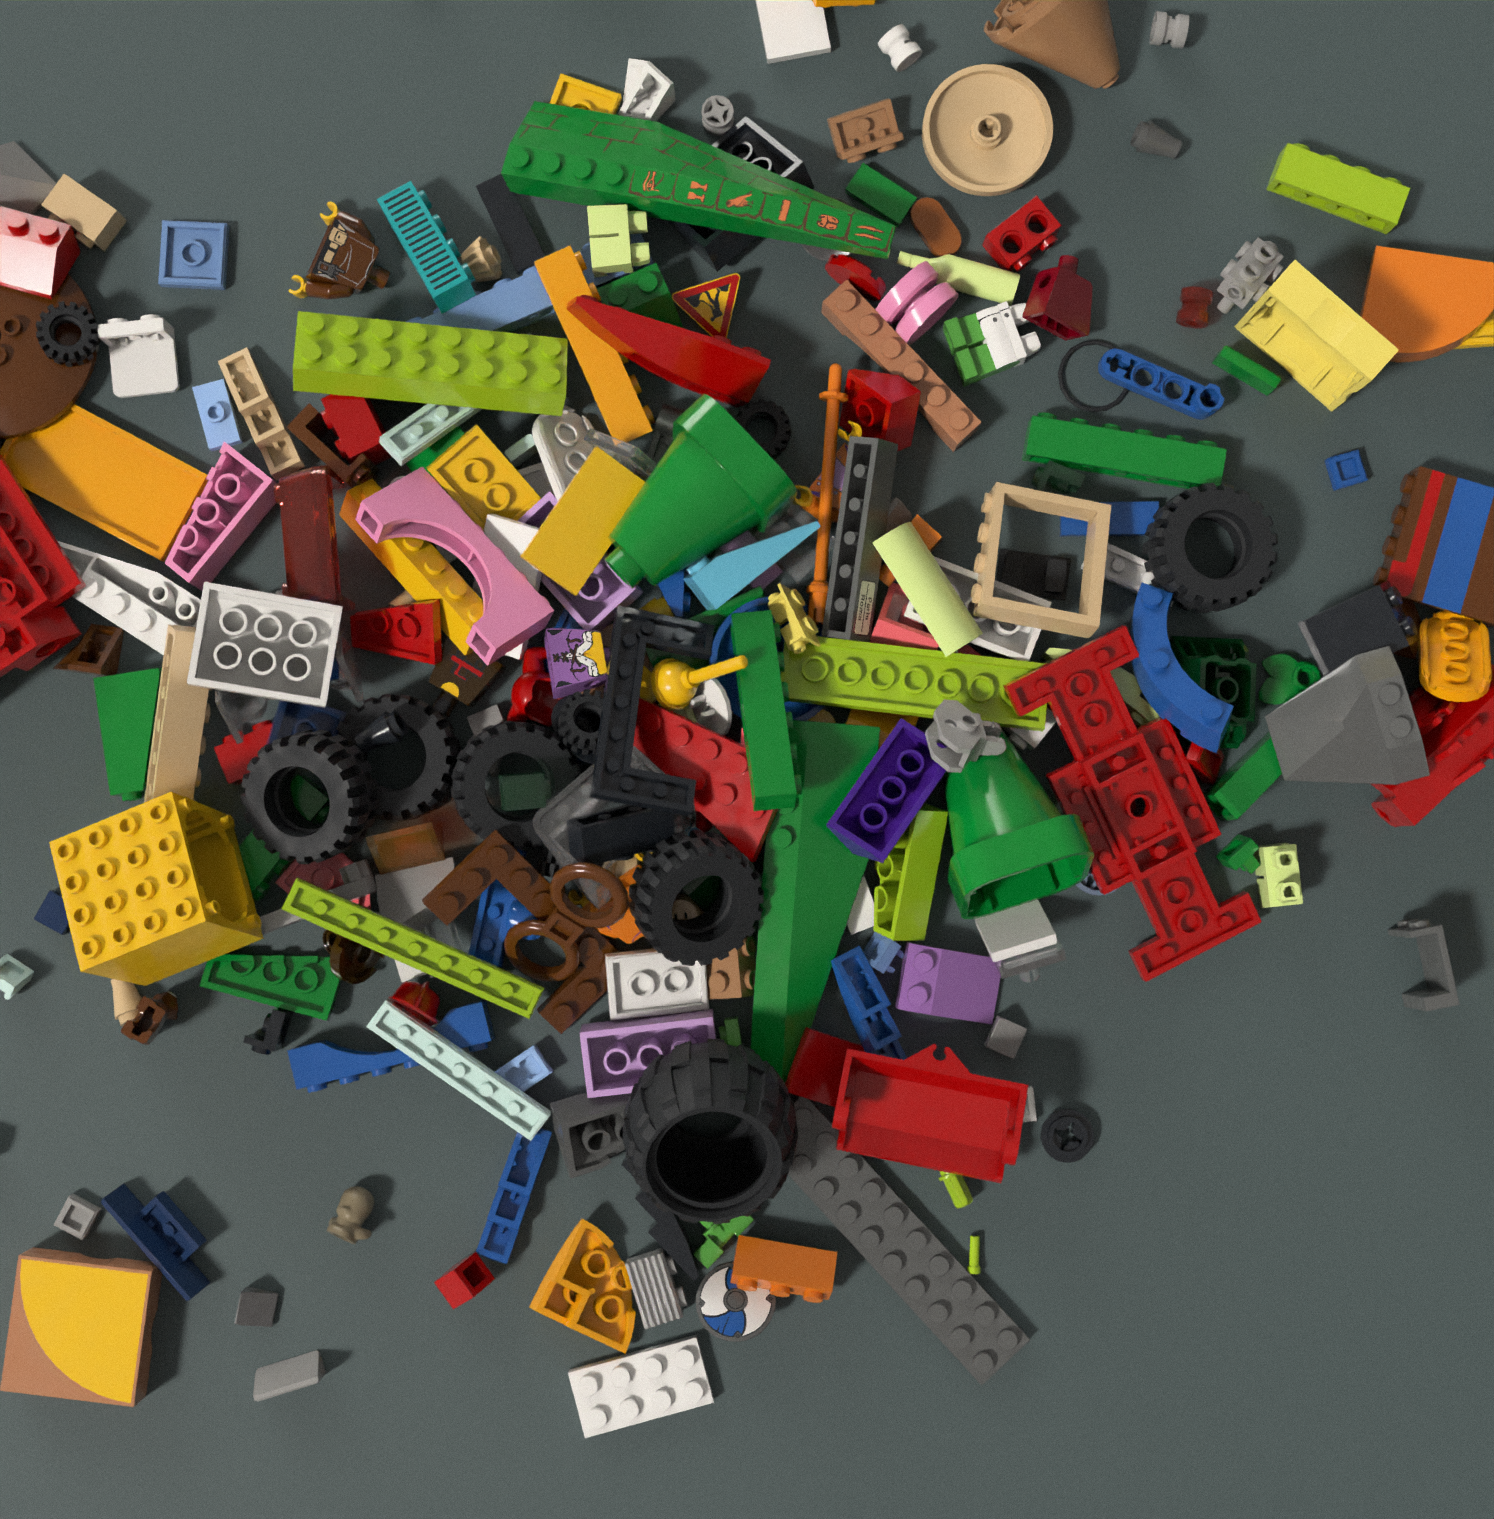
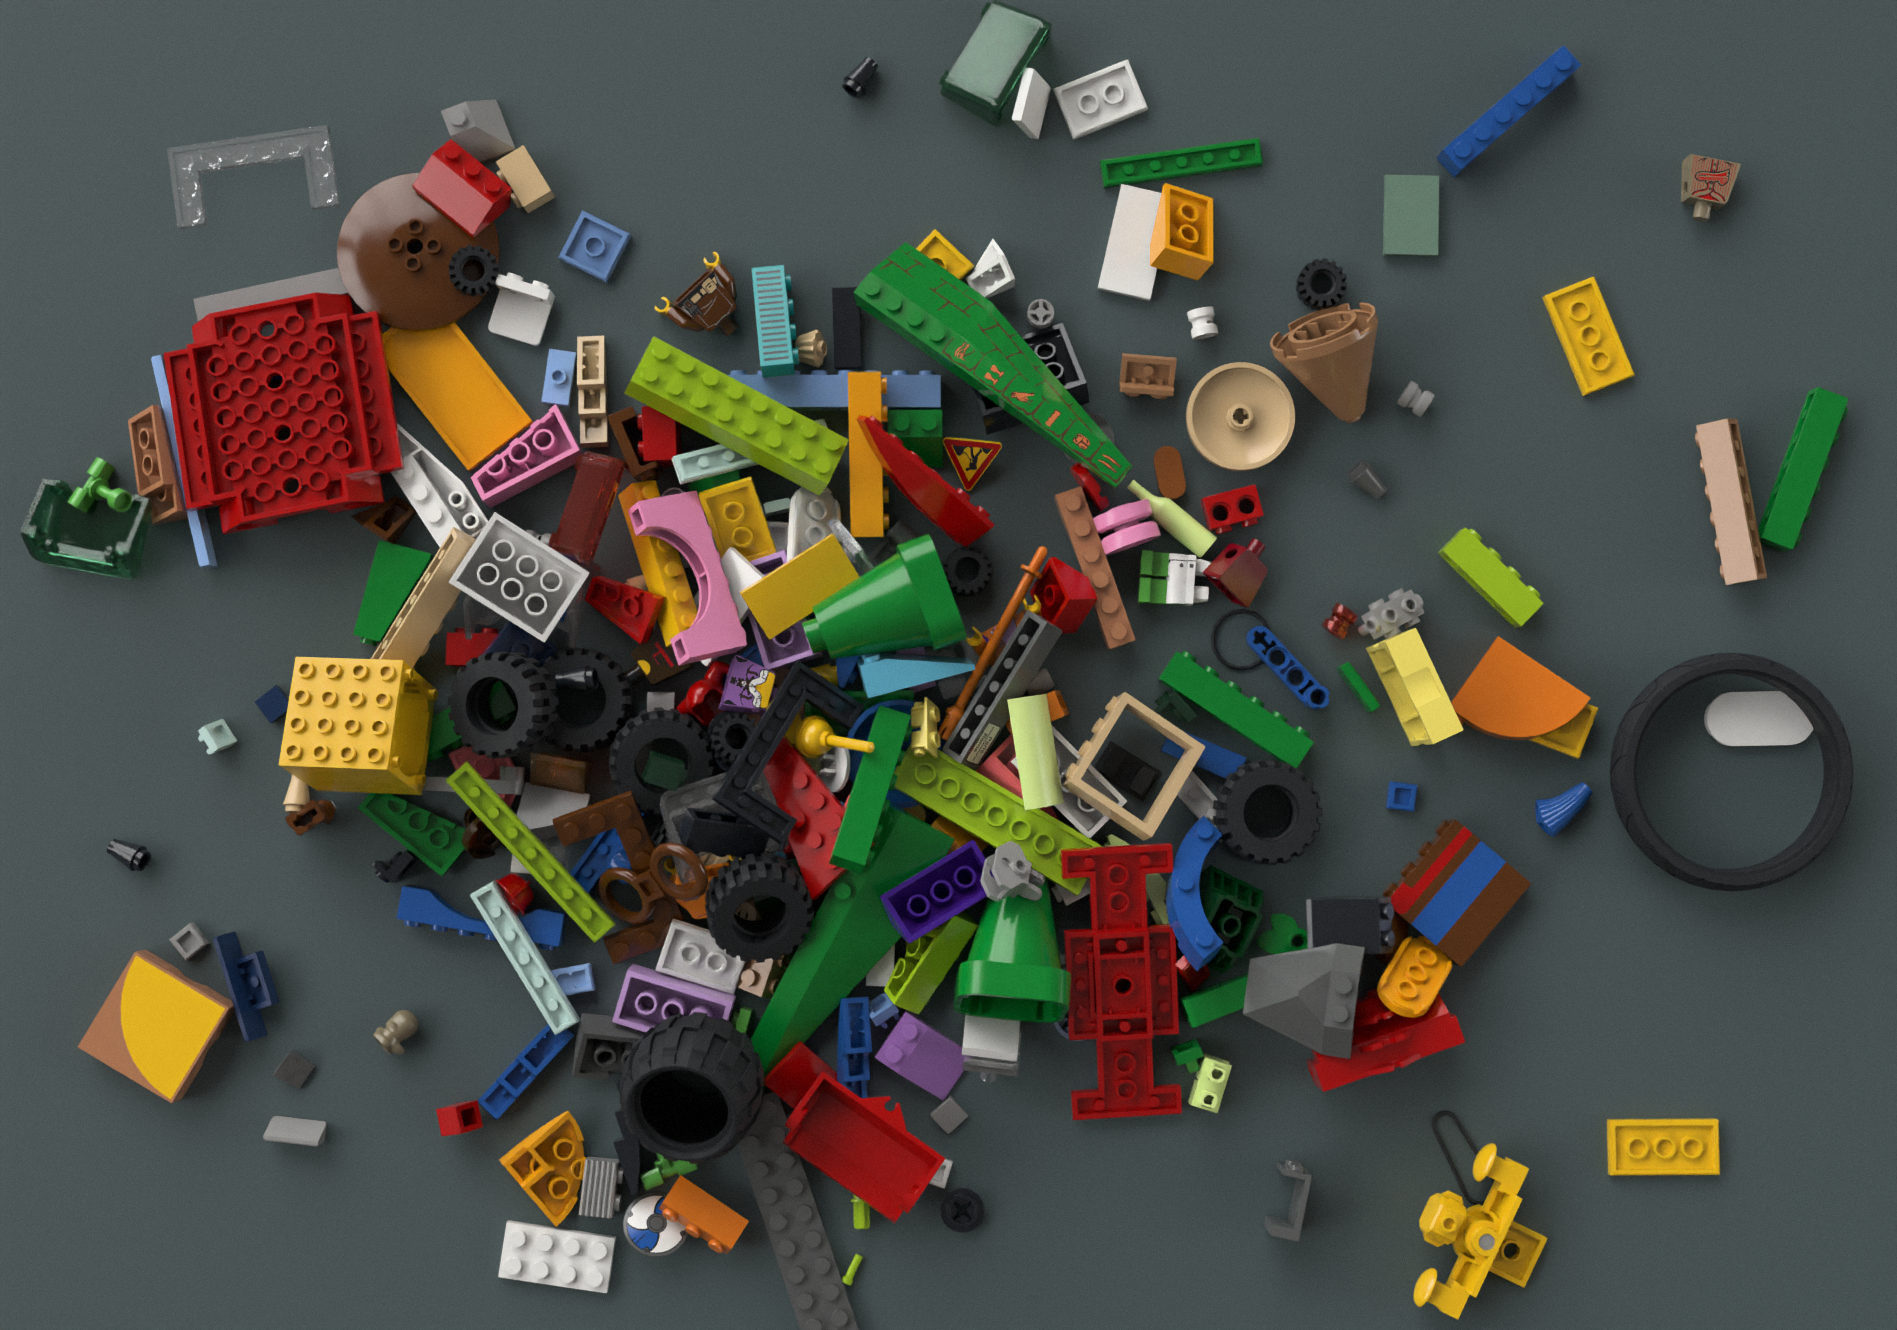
camera: 20 degrees right, 0 degrees up
(611, 239) = (915, 379): yellowish green hips -> none
(880, 195) = (1138, 429): green tile -> none

